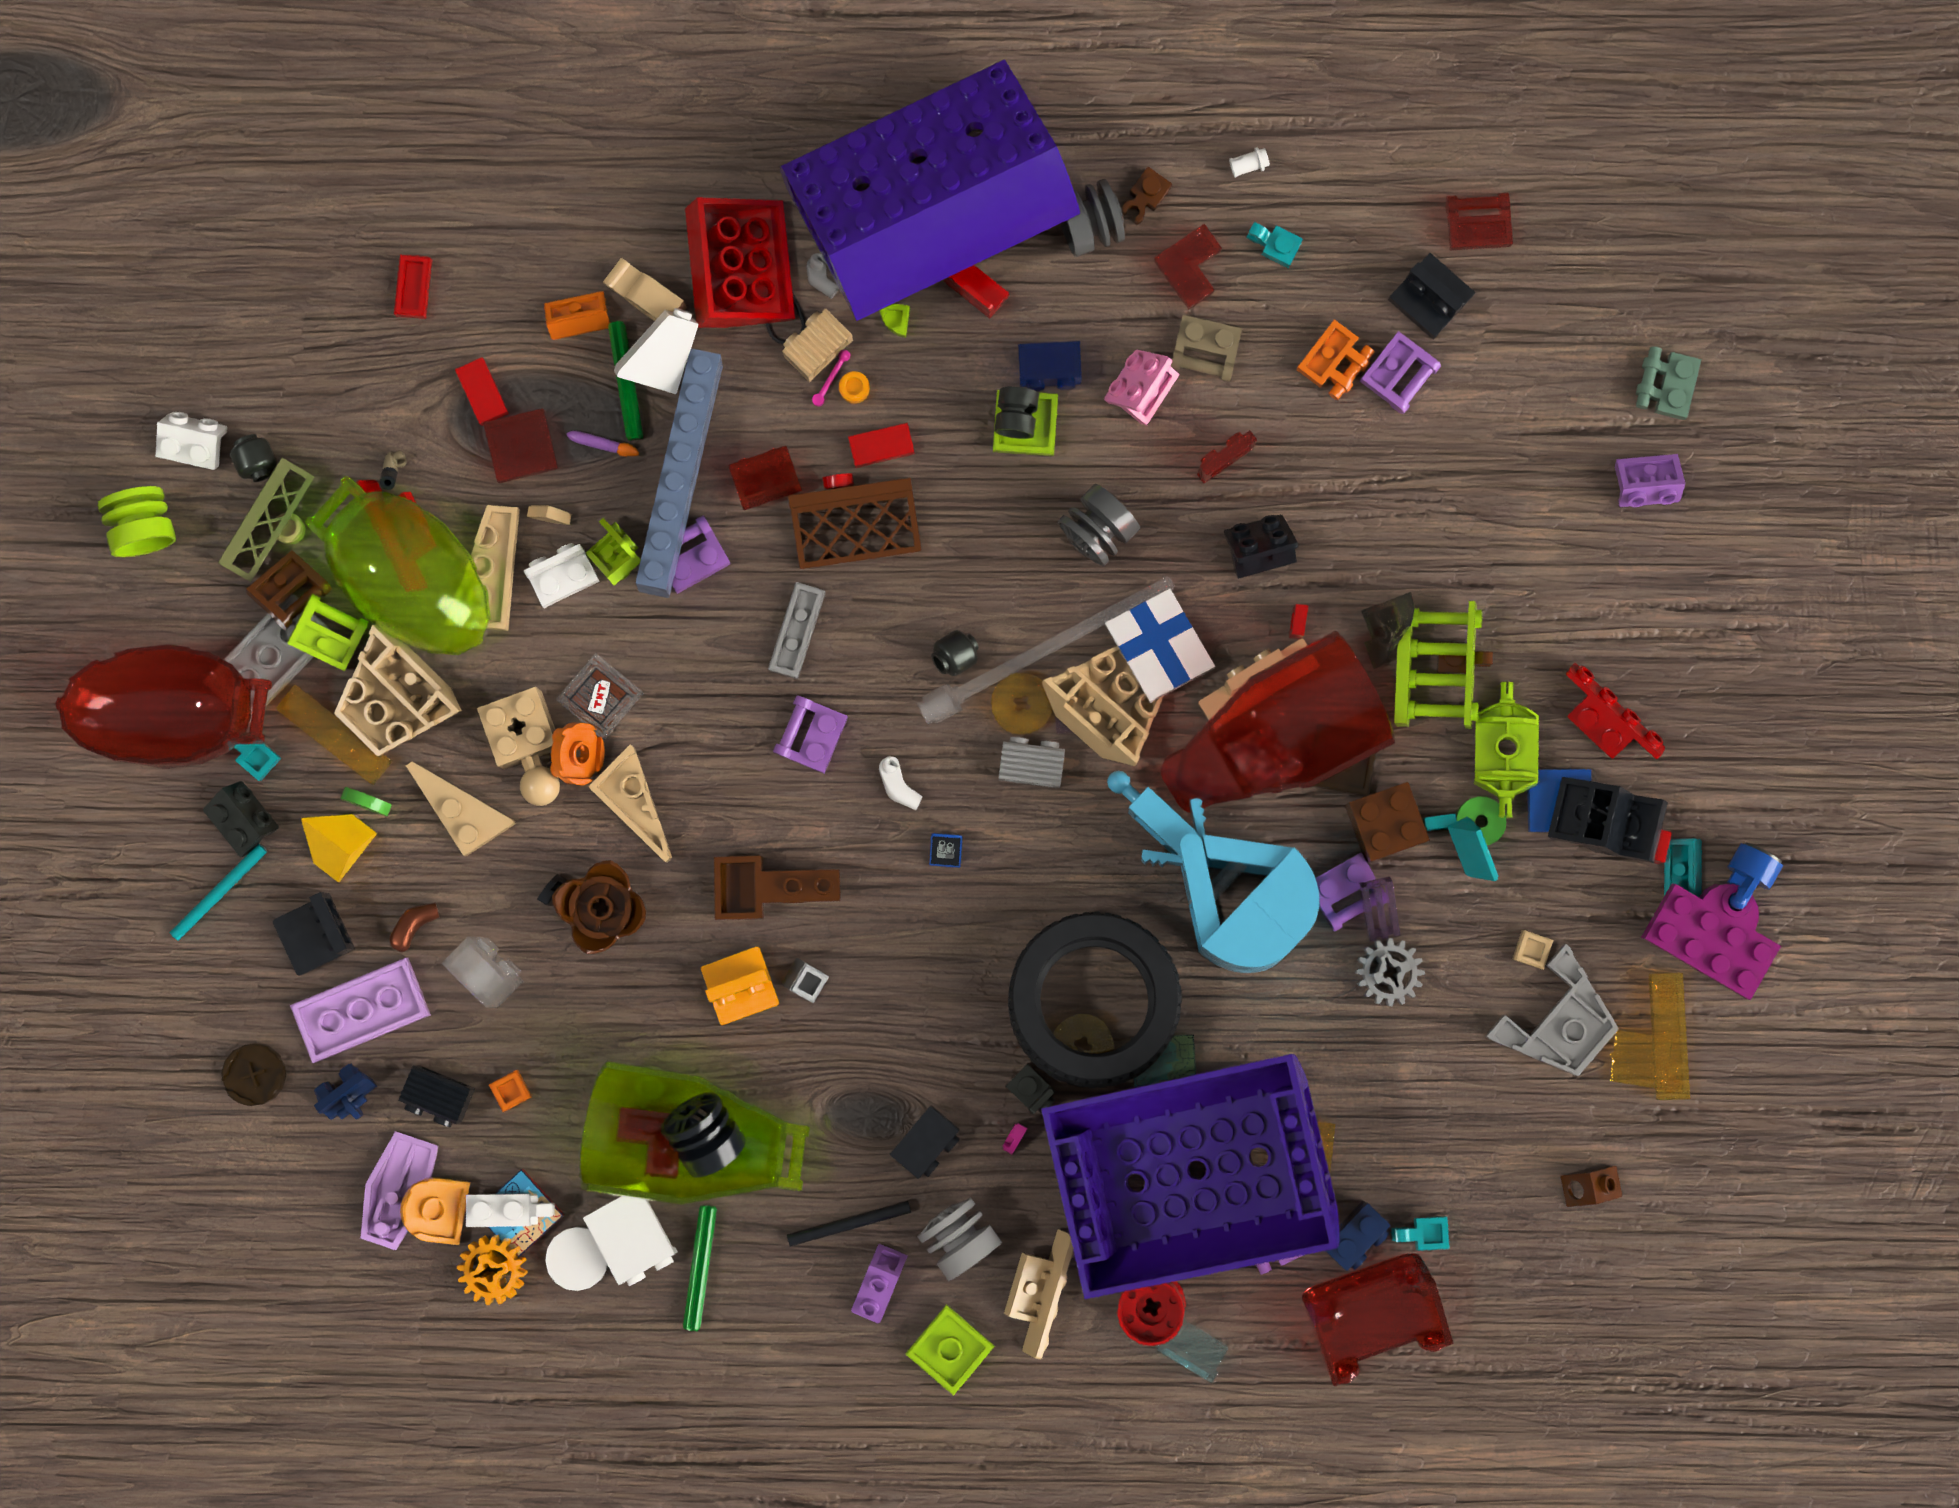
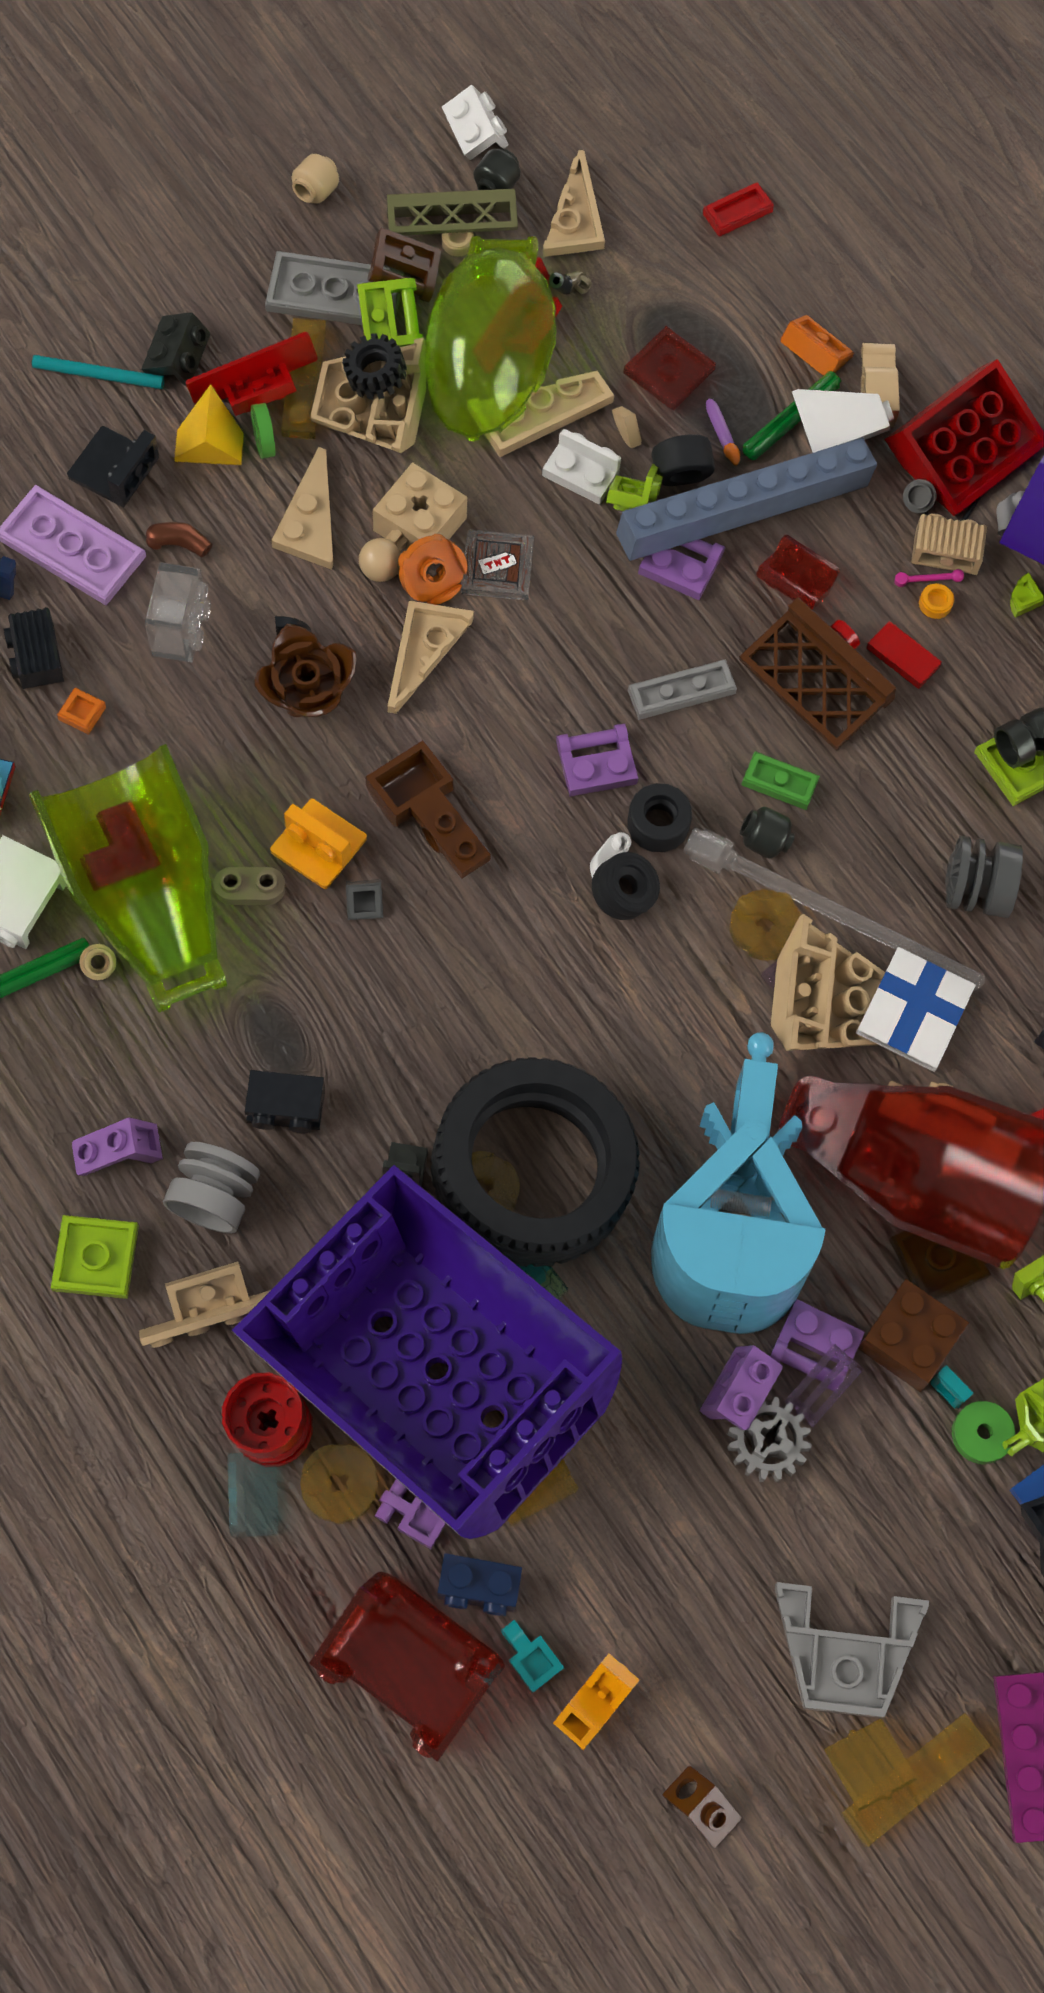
camera: 45 degrees right, 15 degrees down
(136, 521) = (375, 116): lime wheel -> none
(158, 606) = (315, 178): none -> tan head
(162, 707) = (230, 219): clear red windscreen -> none
(257, 759) = (239, 327): teal plate -> none
(316, 776) = (257, 376): none -> red bracket
(338, 424) = (577, 220): none -> tan wing
(357, 688) = (380, 380): none -> black tyre
(481, 391) = (693, 310): red tile -> none
(612, 496) = (683, 459): none -> black tyre
(703, 1134) = (154, 882): black wheel -> none
(731, 1214) = (102, 972): none -> tan plate
(738, 1058) = (248, 887): none -> dark tan plate
(761, 335) = (919, 496): none -> dark grey plate
(849, 1223) = (158, 1085): black bar -> none
(885, 704) = (665, 798): none -> black tyre
(920, 612) = (780, 780): none -> bright green plate
(936, 772) = (640, 875): none -> black tyre
(945, 850) = (578, 943): slope -> none
(1014, 1138) = (352, 1183): dark pink tile -> none
(1031, 763) = (716, 966): light grey brick -> none
(1227, 1303) = (361, 1485): none -> clear yellow plate
(1343, 966) = (742, 1386): none -> medium lavender bracket
(1472, 850) = (950, 1436): teal slope -> none
(1483, 1212) = (596, 1701): none -> light orange brick
(1532, 949) = (897, 1574): tan tile -> none

